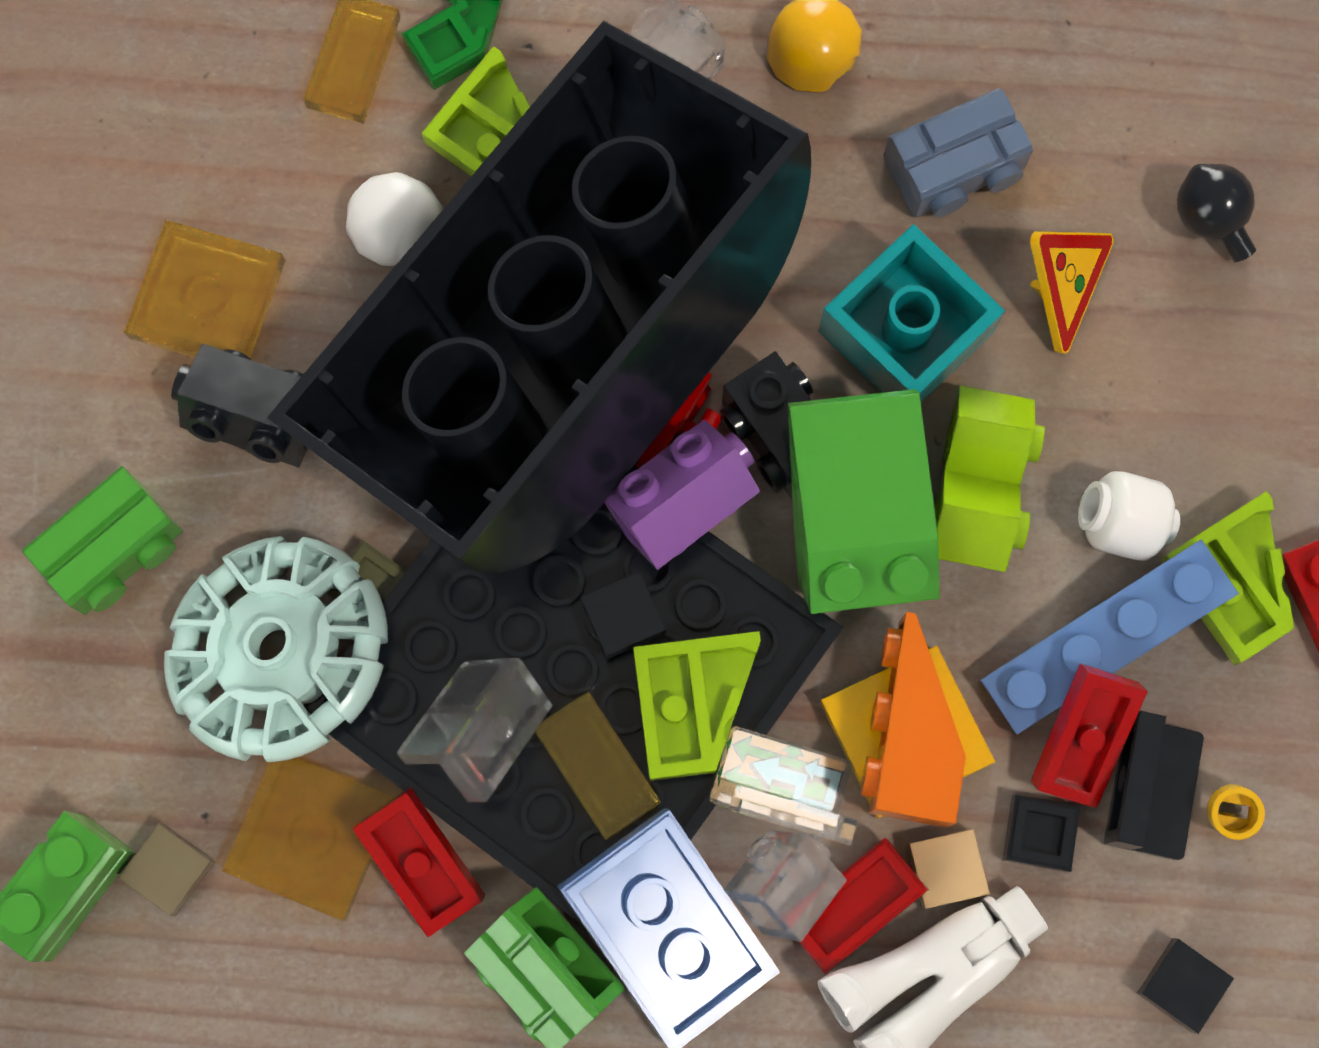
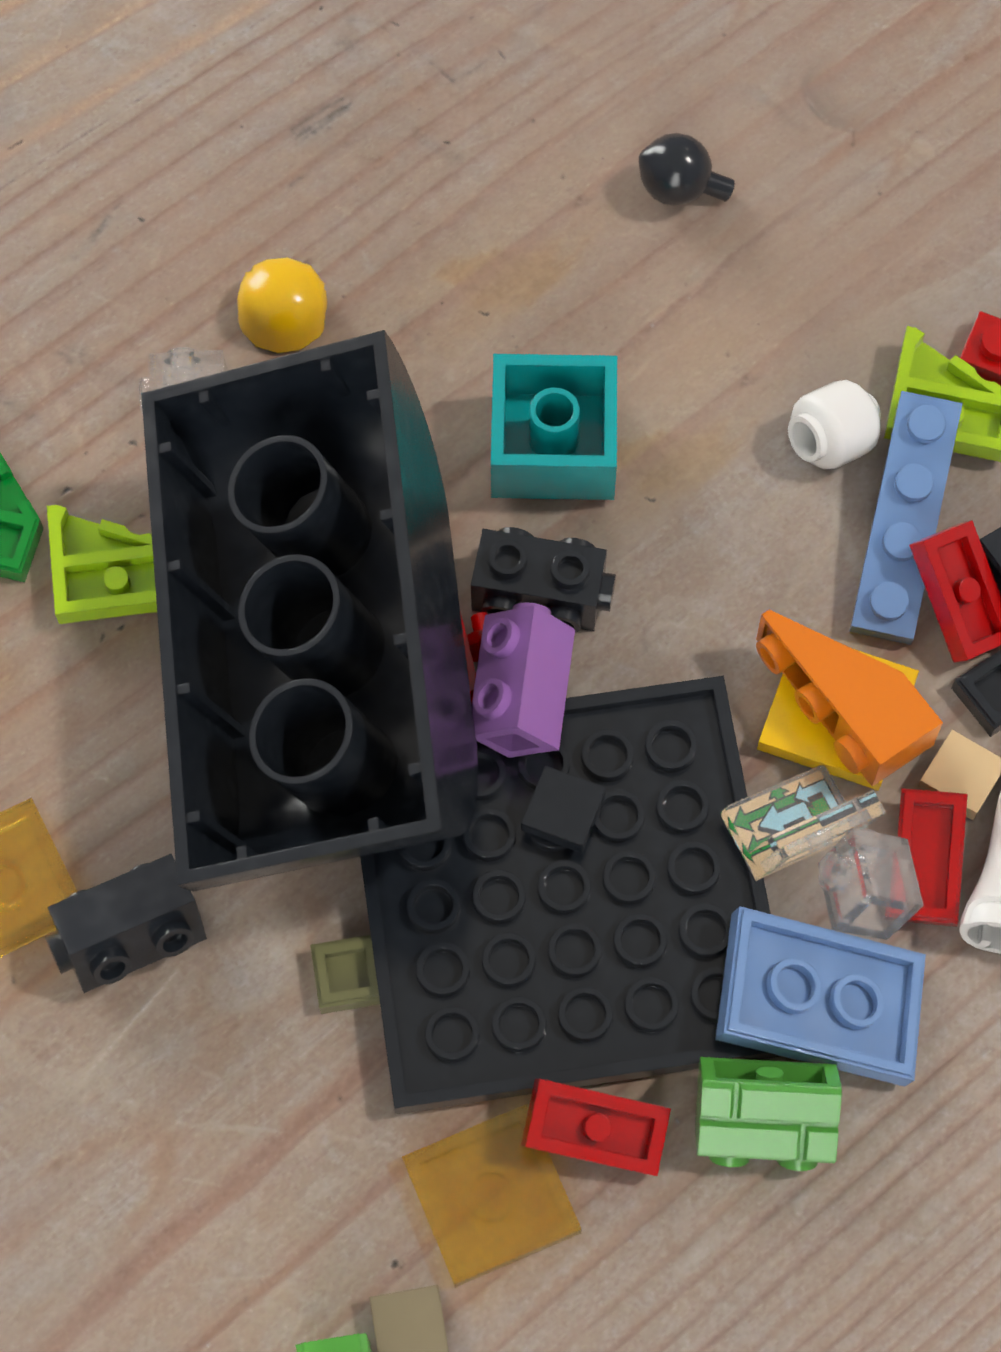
camera: 45 degrees left, 10 degrees down
(104, 543) = (111, 1131): bright green brick -> none
(302, 668) = (358, 1102): light aqua plate -> none
(390, 216) = (93, 697): white hair -> none
(479, 725) = (541, 972): clear panel -> none
(597, 766) = (655, 930): clear yellow tile -> none
(691, 700) = (673, 820): lime wing -> none
(862, 502) = (653, 573): bright green slope -> none
(958, 154) = (466, 290): sand blue brick -> none
(982, 476) = (698, 469): lime brick -> none
(1067, 276) = (623, 296): piece -> none

